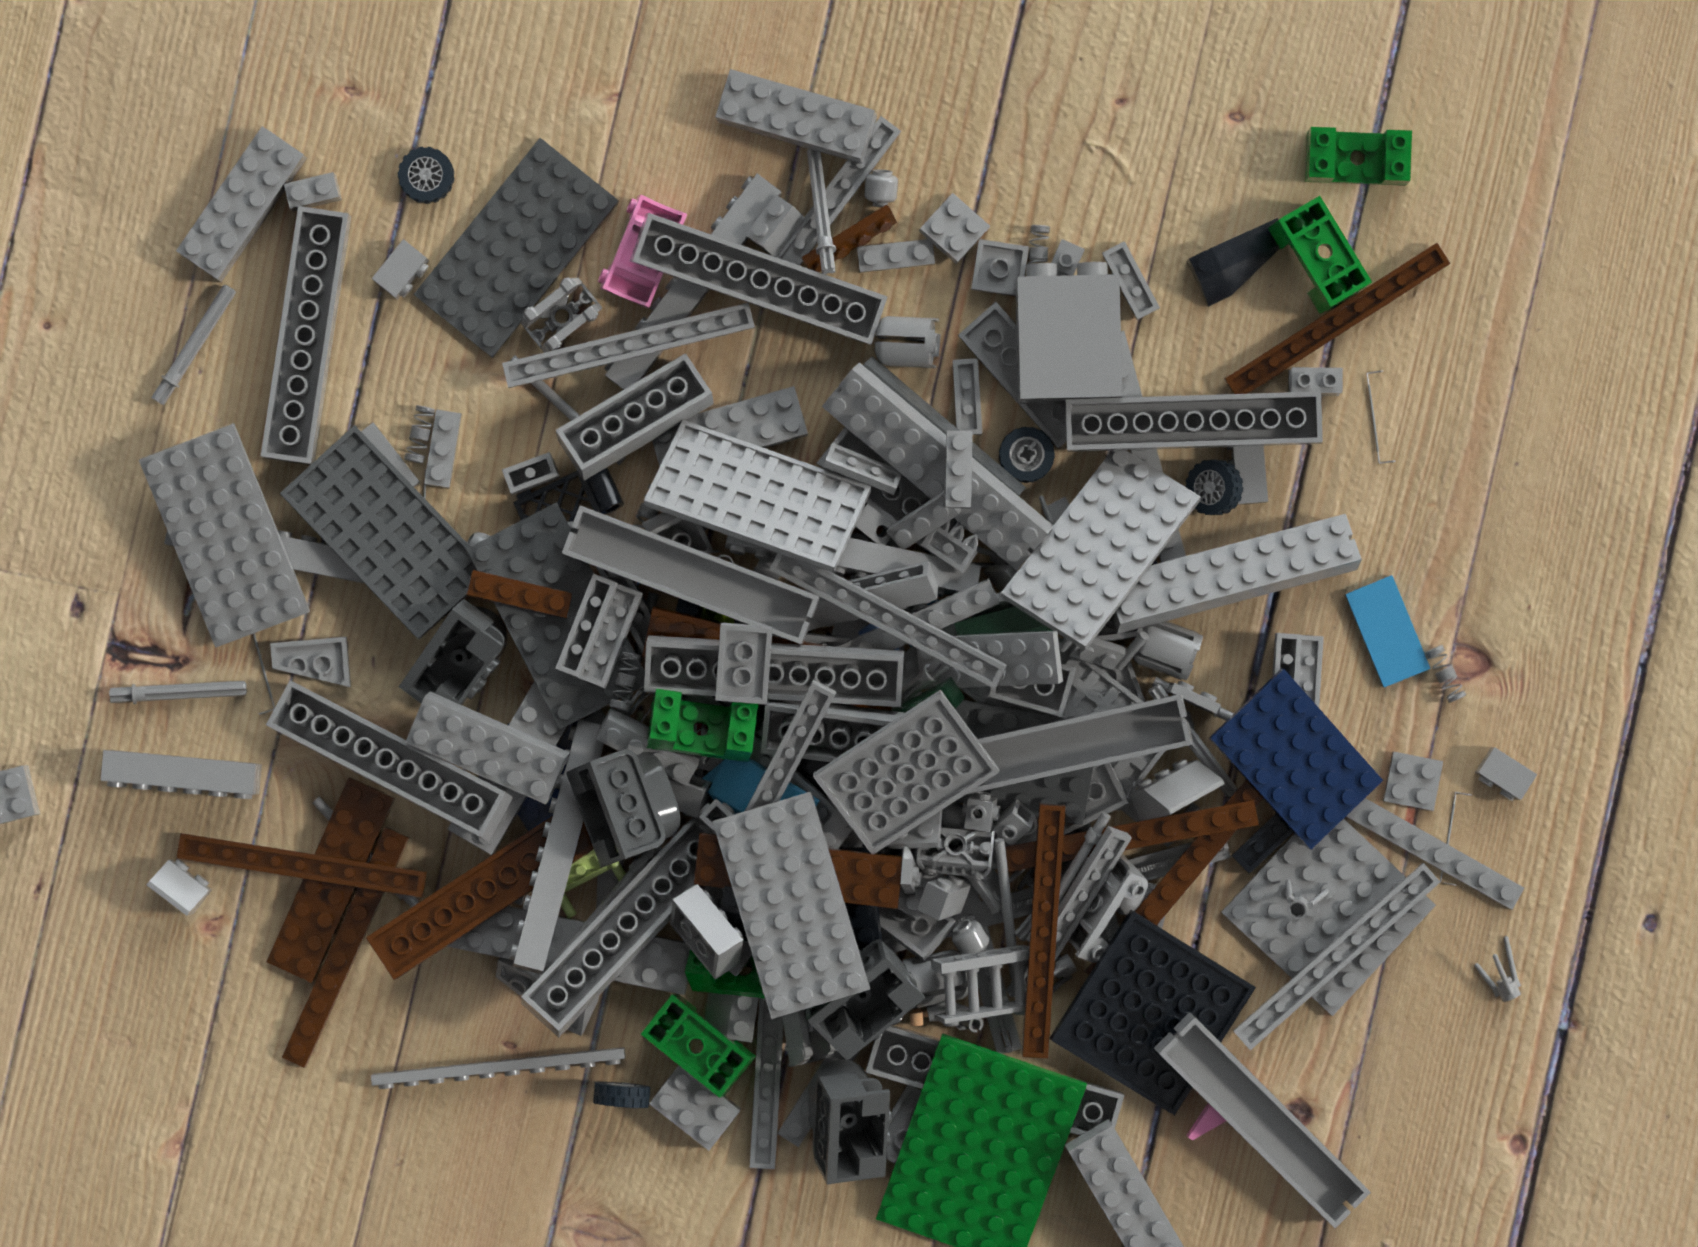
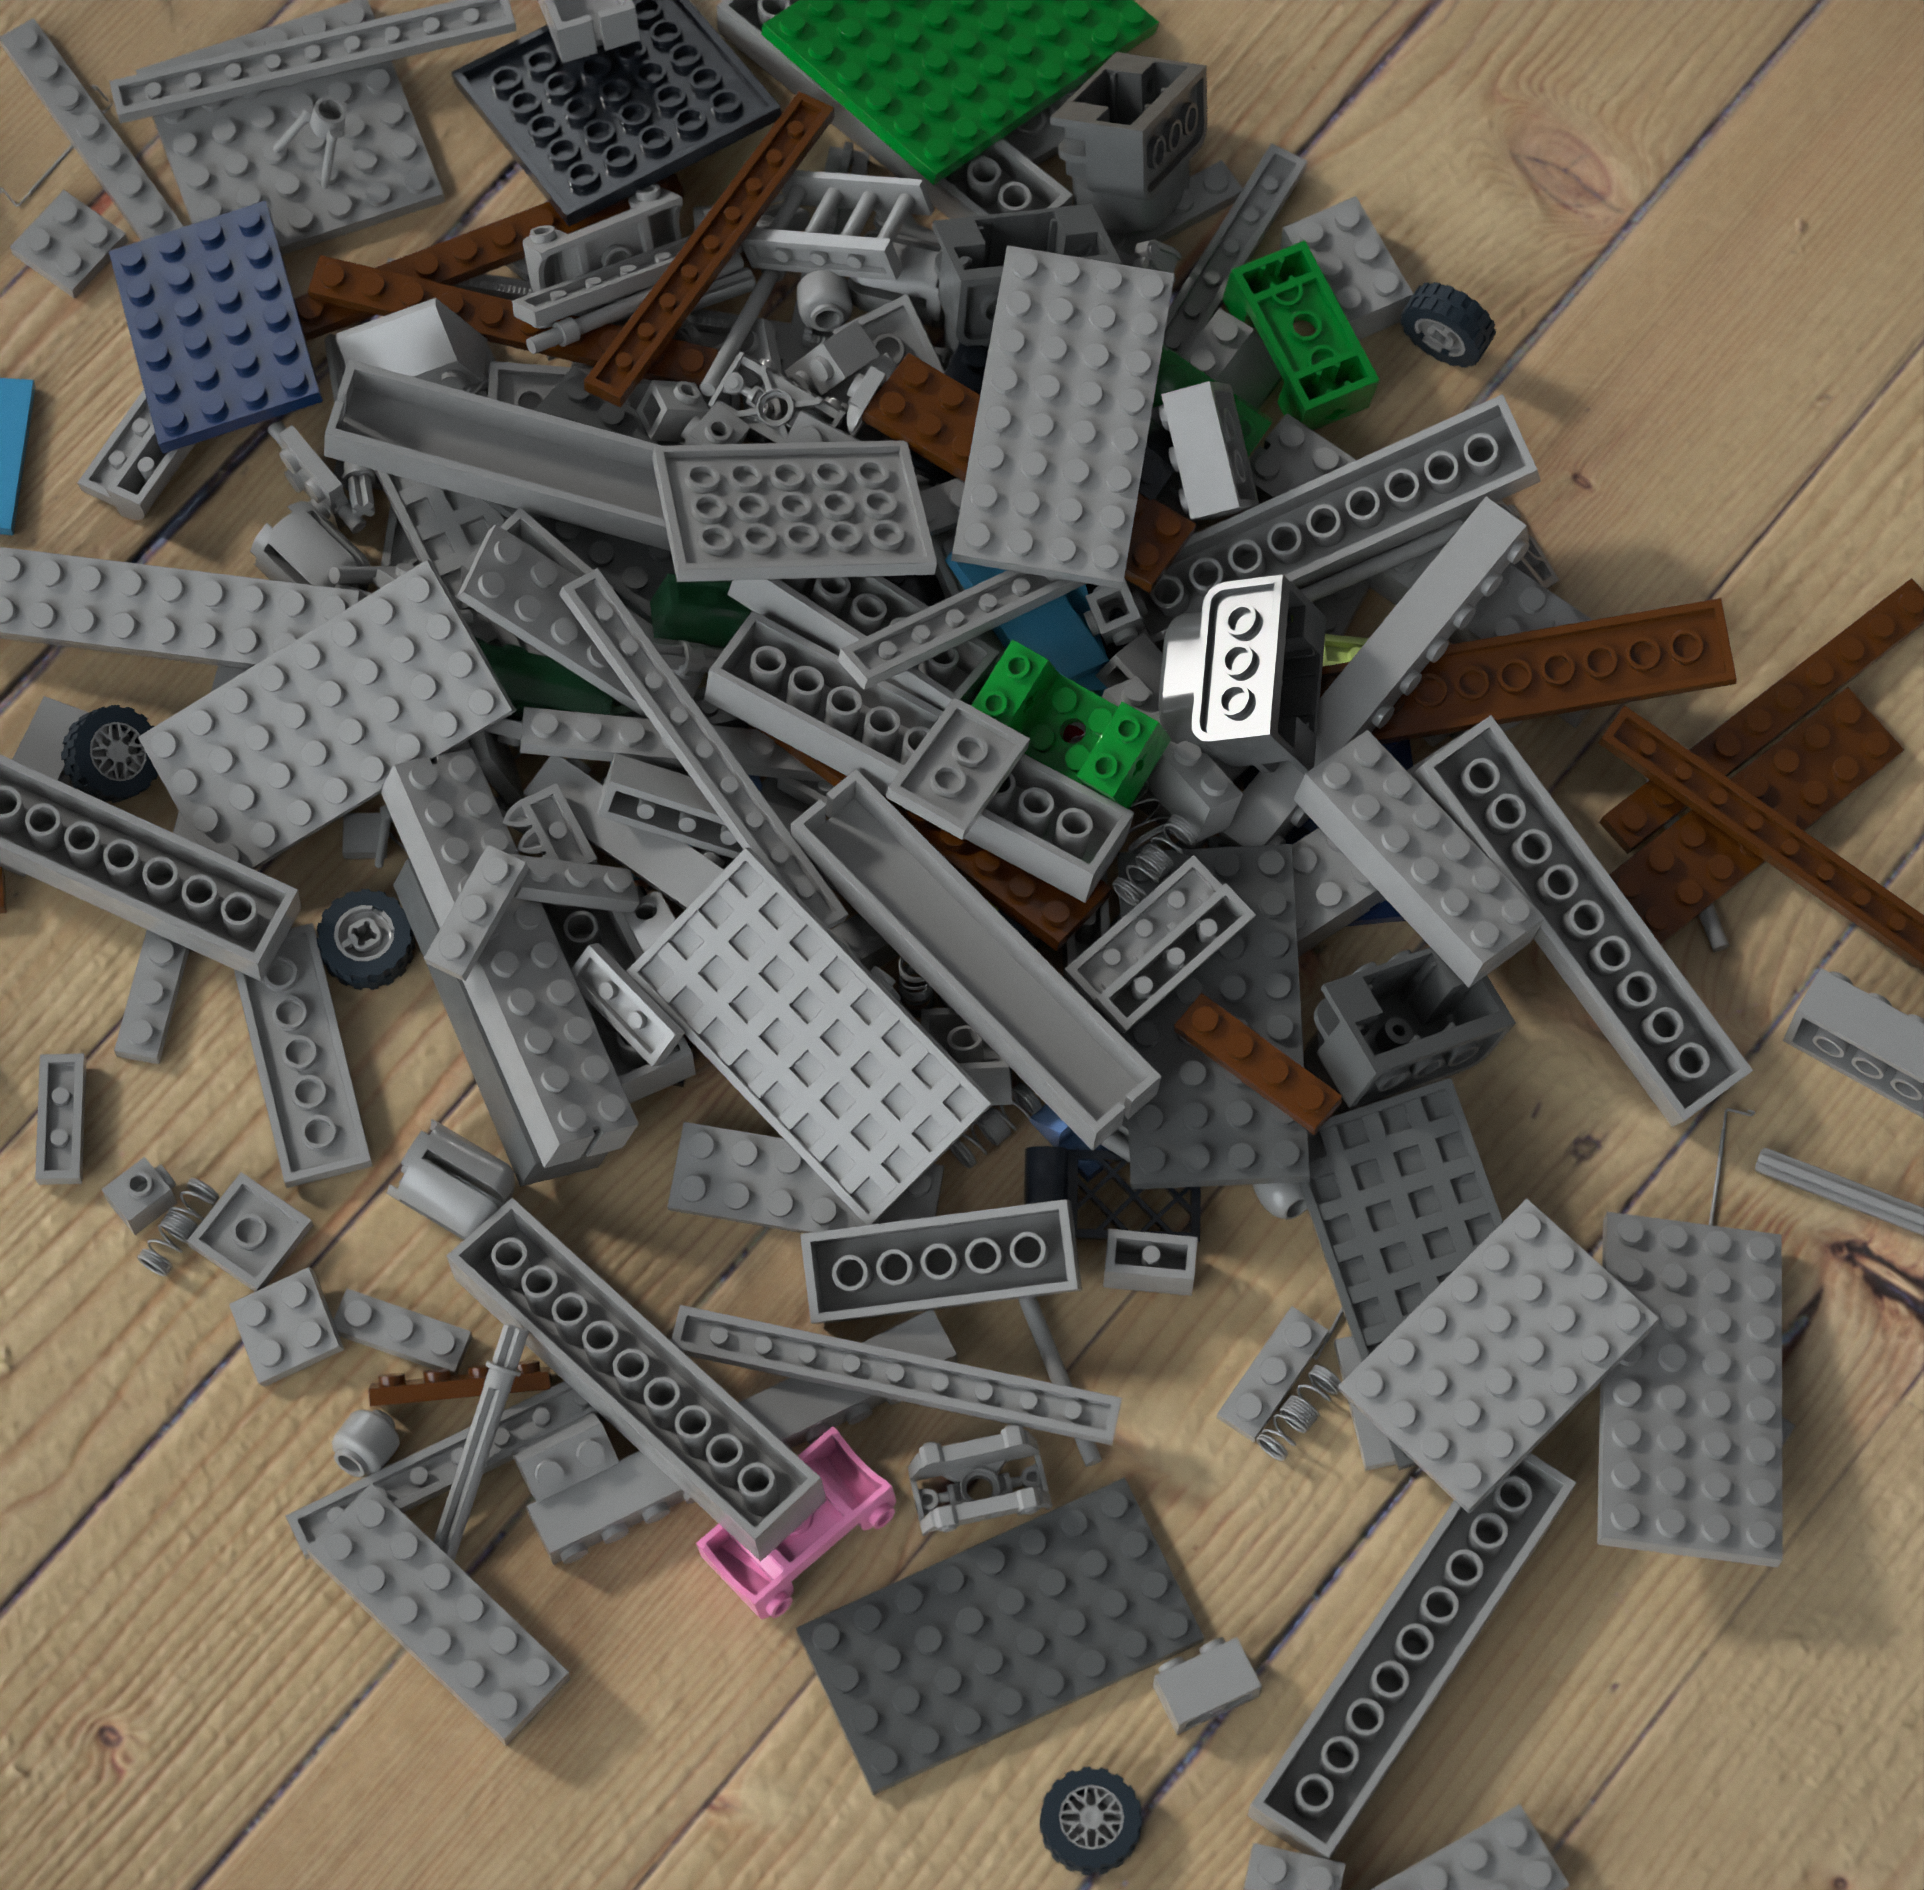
camera: 155 degrees left, 20 degrees down
(193, 345) = (1606, 1729): light grey axle -> none
(315, 658) = (1627, 1151): light grey wing -> none
(327, 501) = (1498, 1355): none -> light grey plate
(509, 1067) = (1628, 456): light grey plate -> none
(967, 395) = (408, 1066): light grey plate -> none
(1068, 333) = (199, 1062): light grey brick -> none
(1262, 843) = (353, 244): black plate -> none

